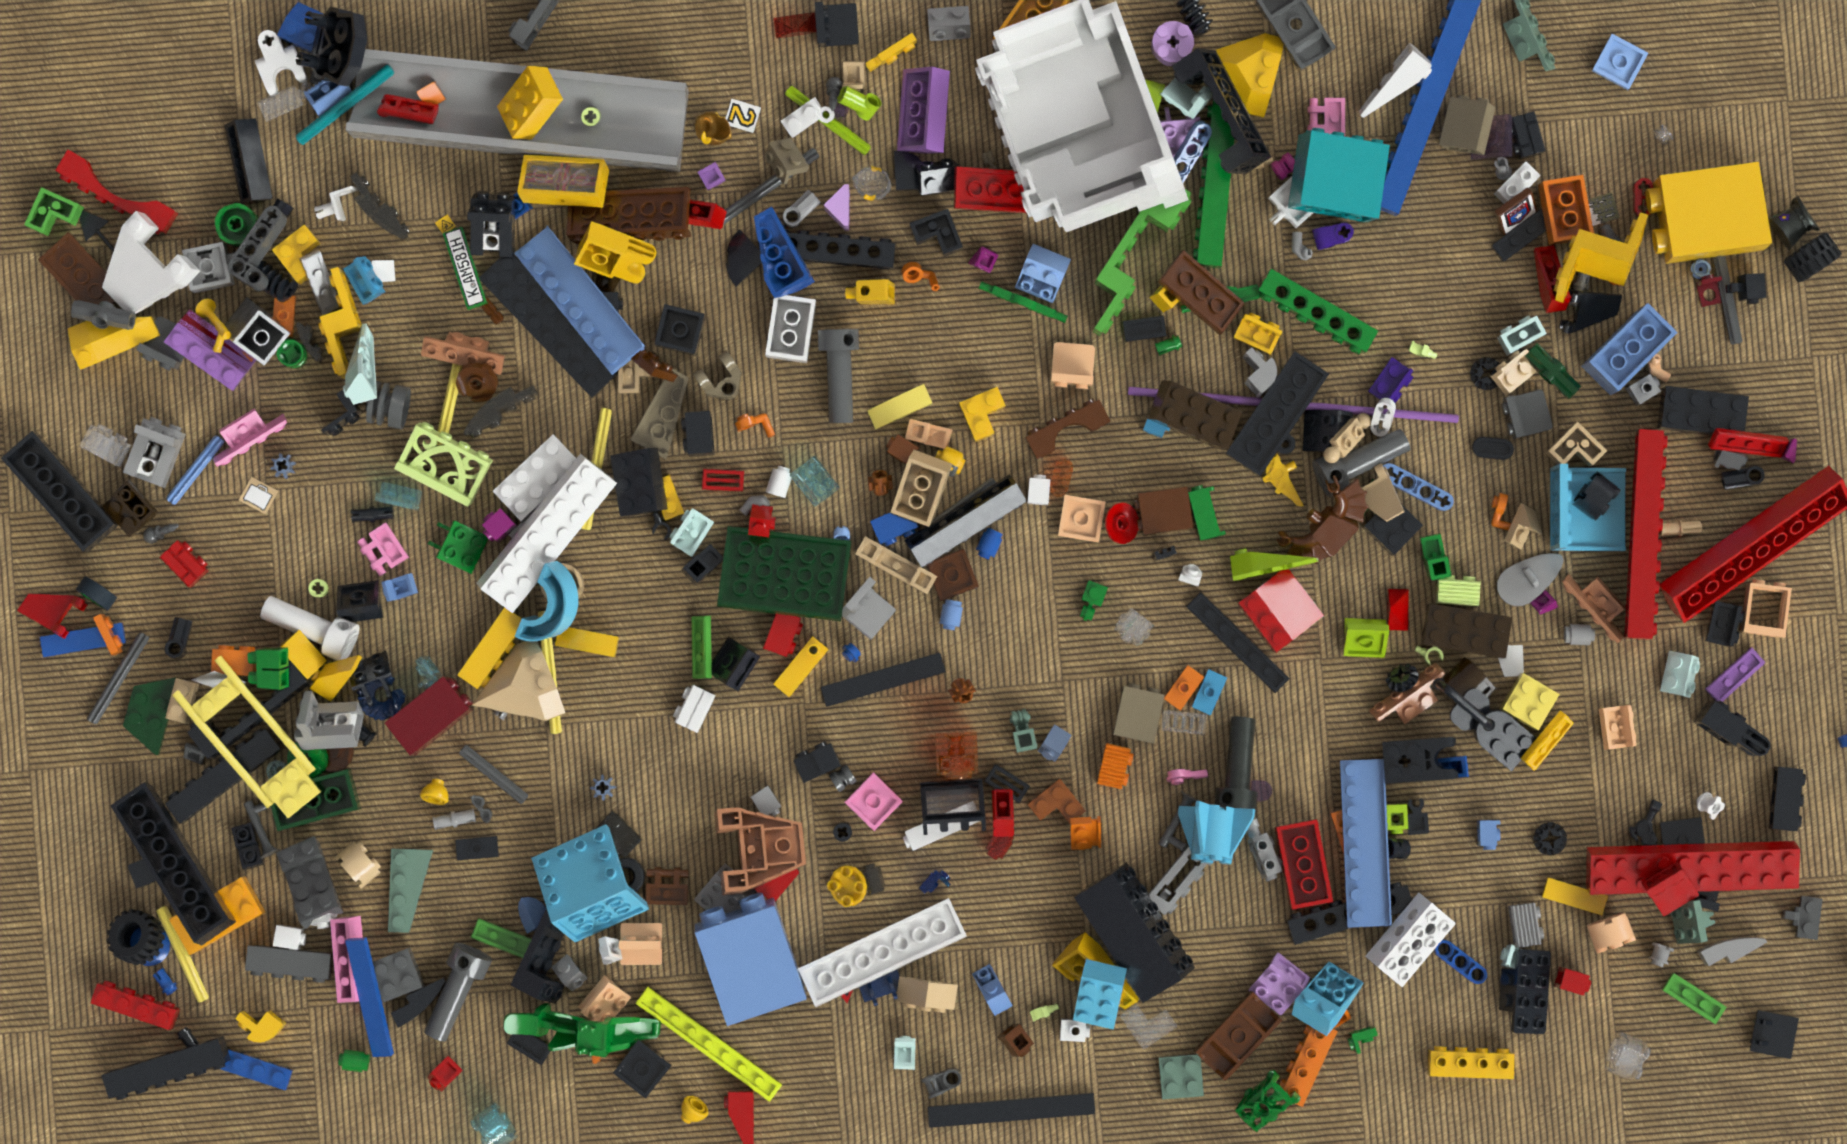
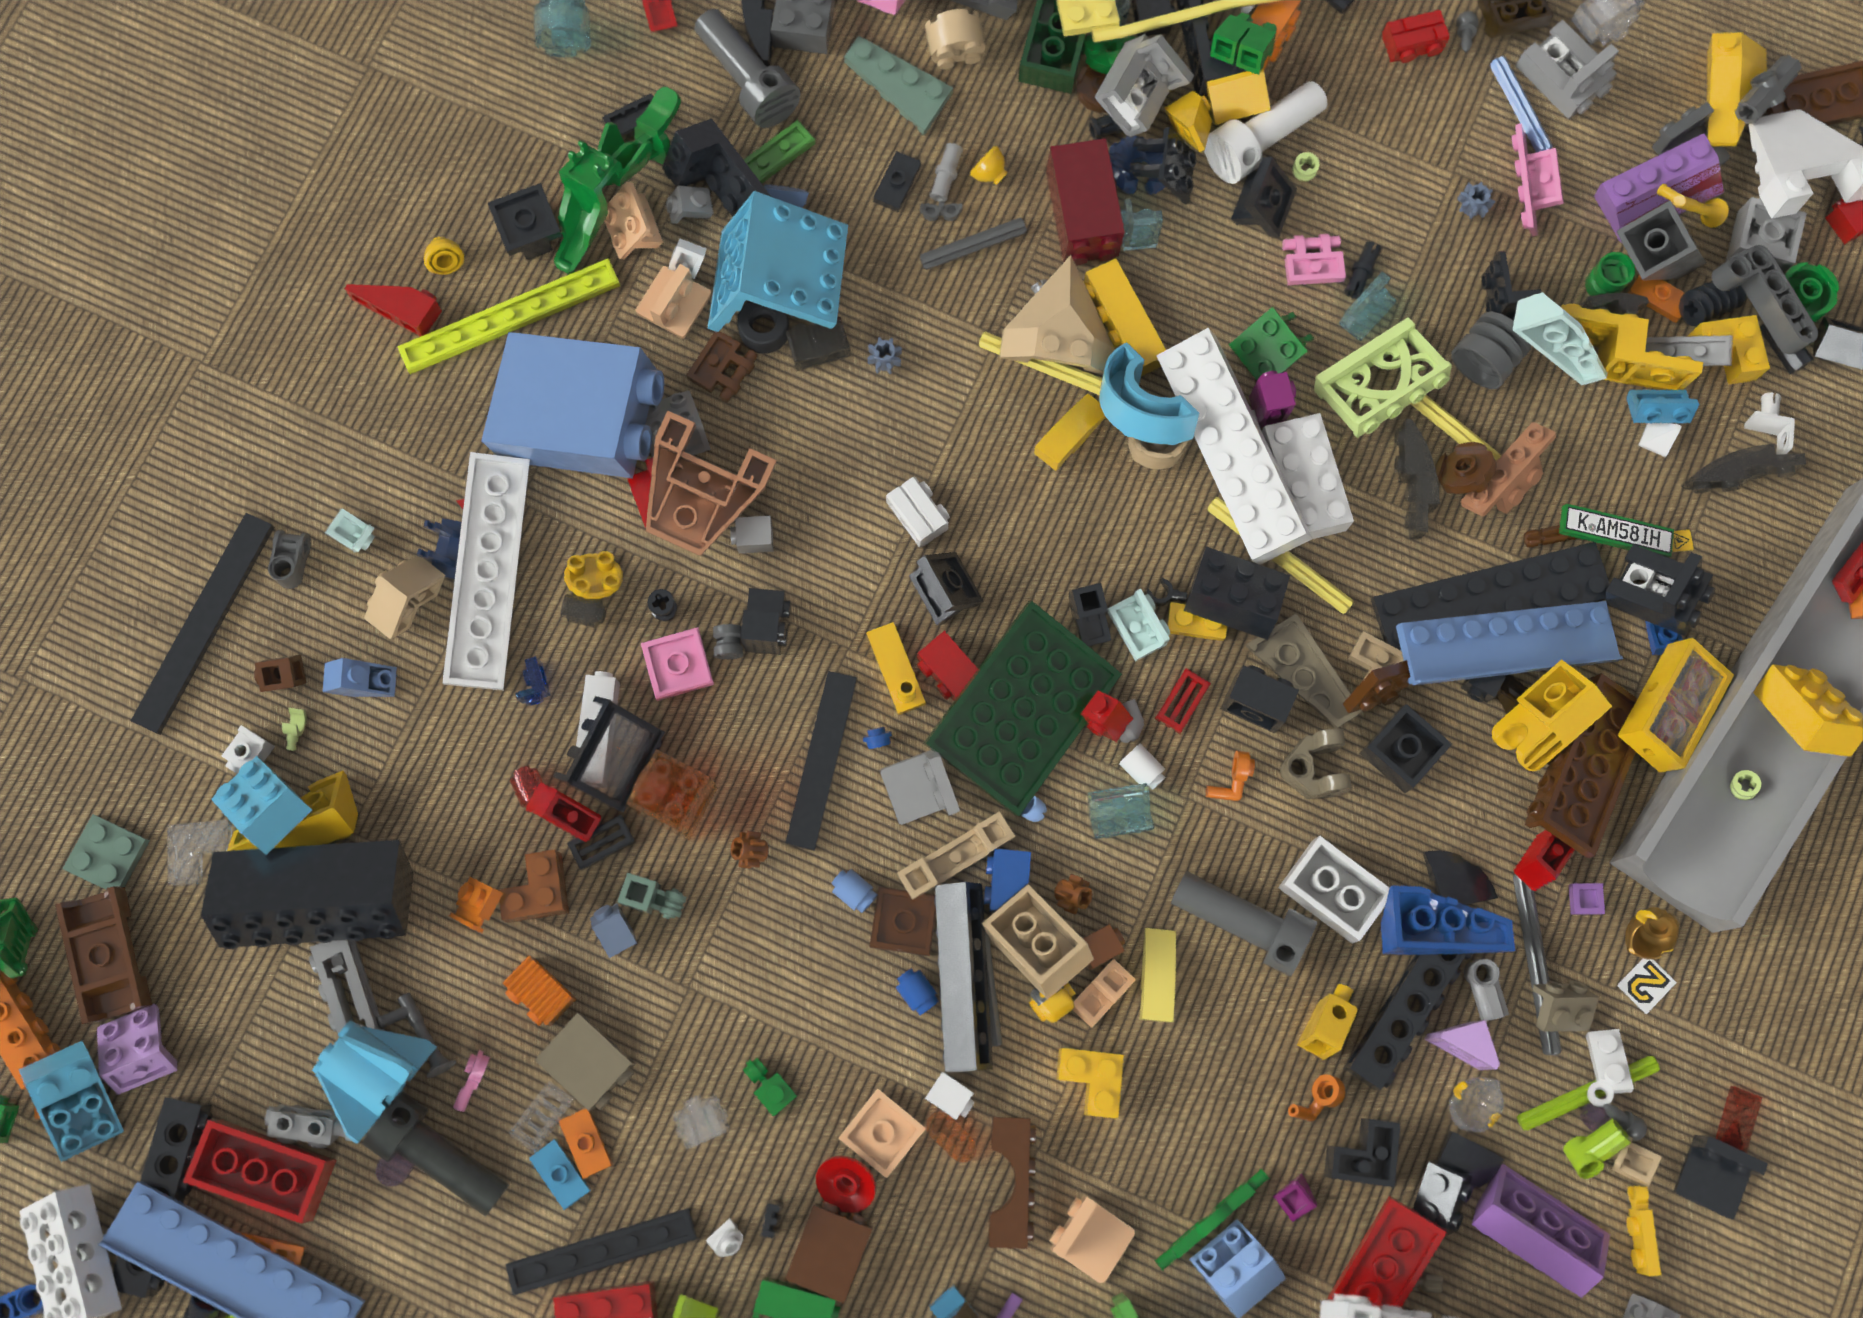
camera: 115 degrees right, 10 degrees down
(258, 495) = (1452, 160): sticker -> none
(399, 587) = (1257, 251): medium blue bracket -> none
(701, 647) = (988, 560): bright green tile -> none

